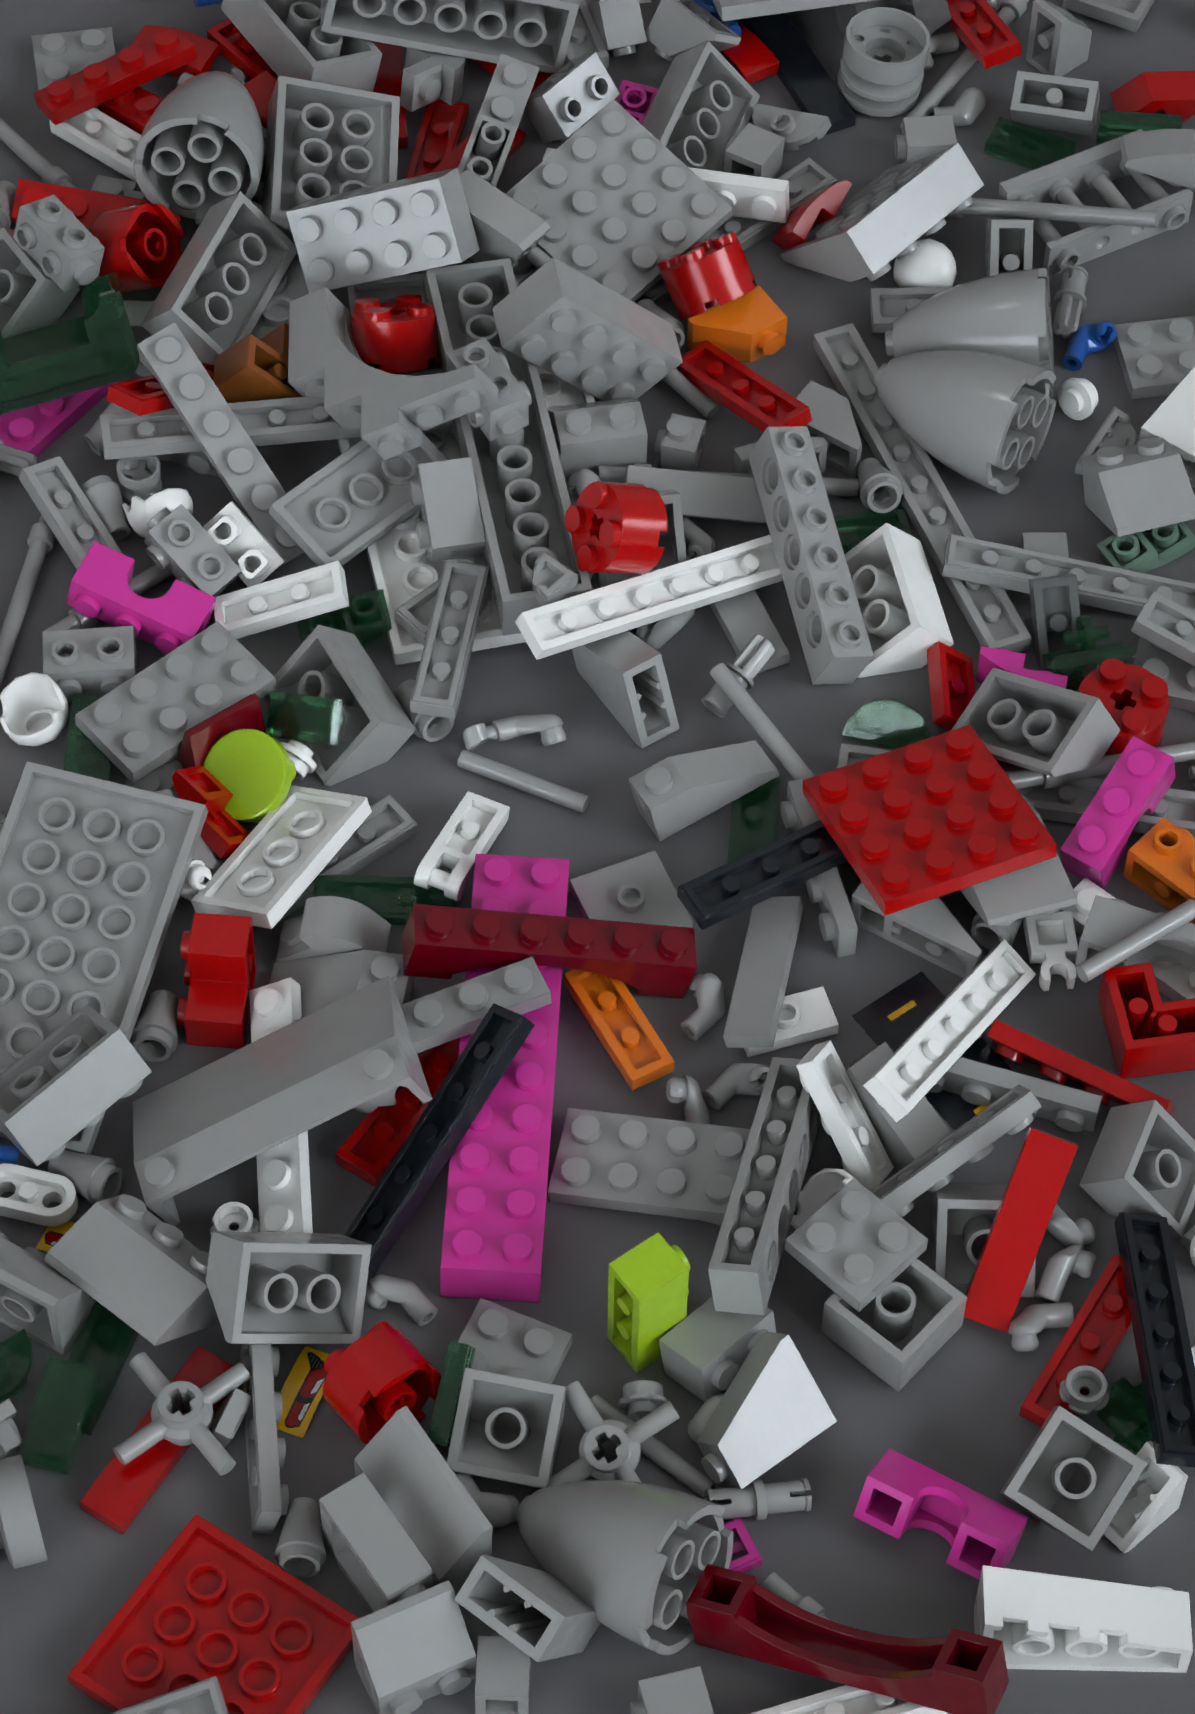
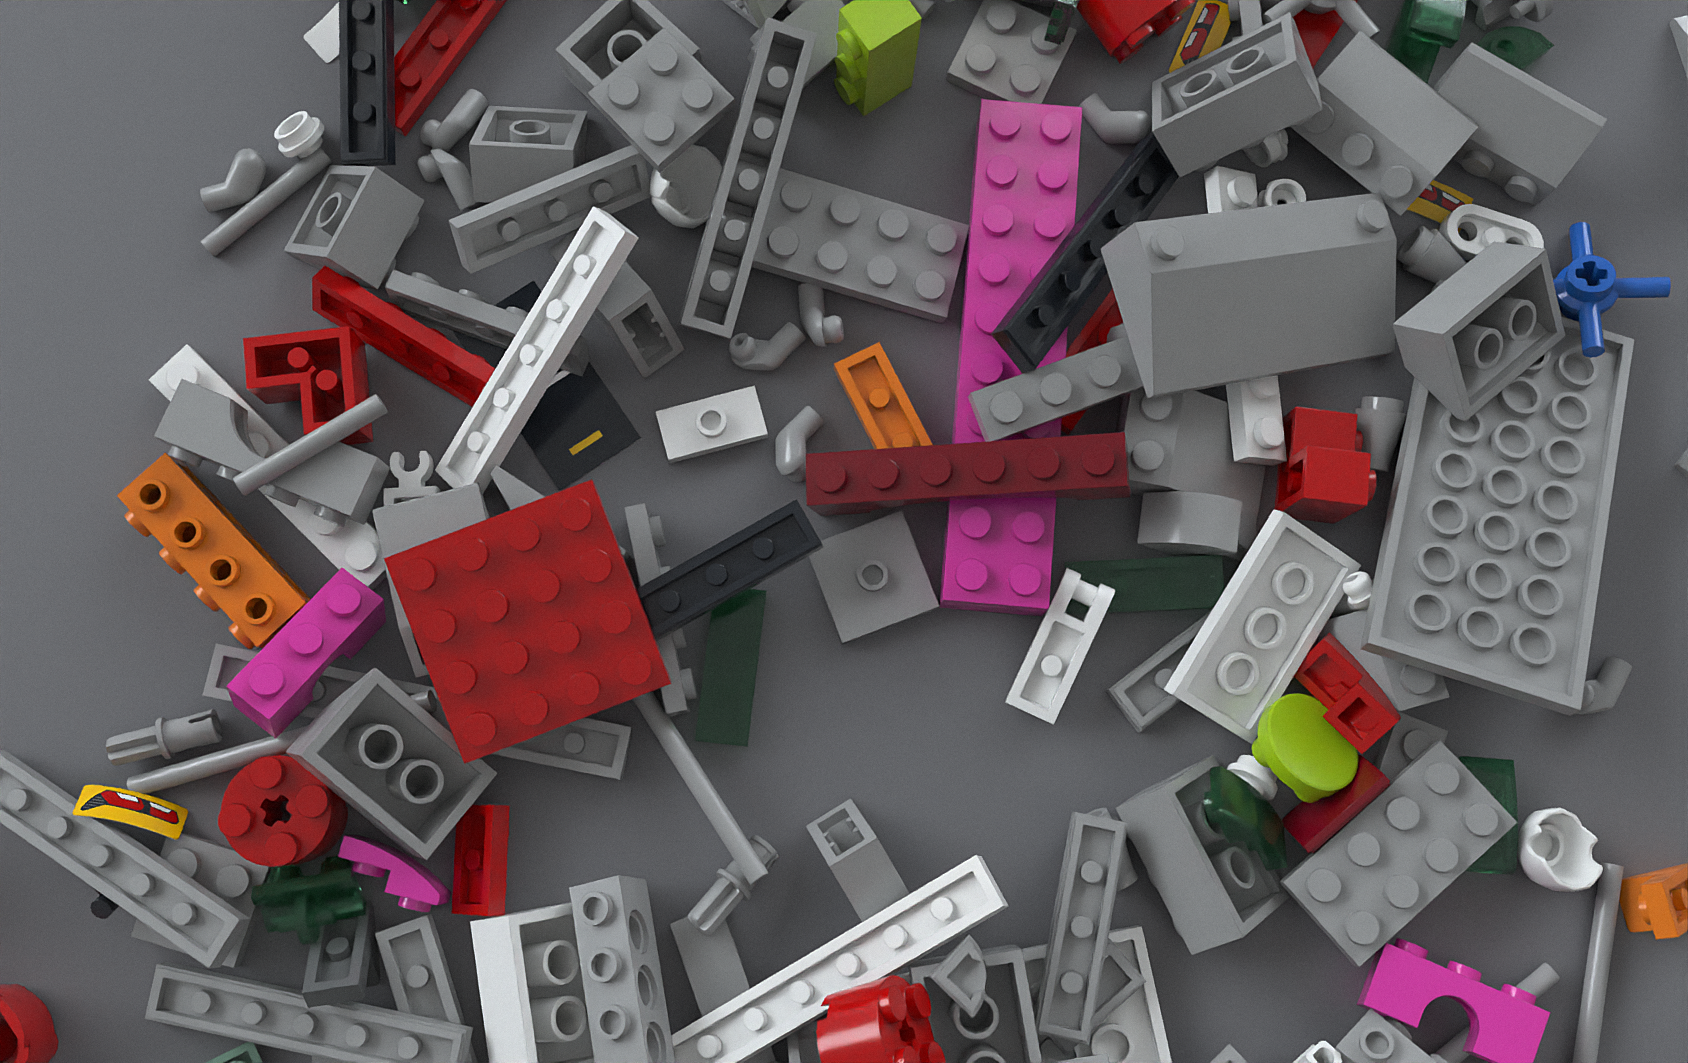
camera: 175 degrees right, 25 degrees up
(89, 659) = (1499, 923): light grey brick -> none
(283, 600) = (1281, 1006): white plate -> none
(365, 617) = (1201, 980): clear green slope -> none
(516, 726) = (992, 827): light grey arm -> none
(523, 781) = (988, 751): light grey bar -> none
(697, 784) = (784, 722): light grey slope -> none
(763, 973) = (733, 457): light grey tile -> none
(844, 1115) = (665, 262): white plate -> none
(887, 723) = (560, 811): plate -> none
(1018, 1228) = (490, 123): red tile -> none
(1035, 1319) = (491, 74): light grey arm -> none

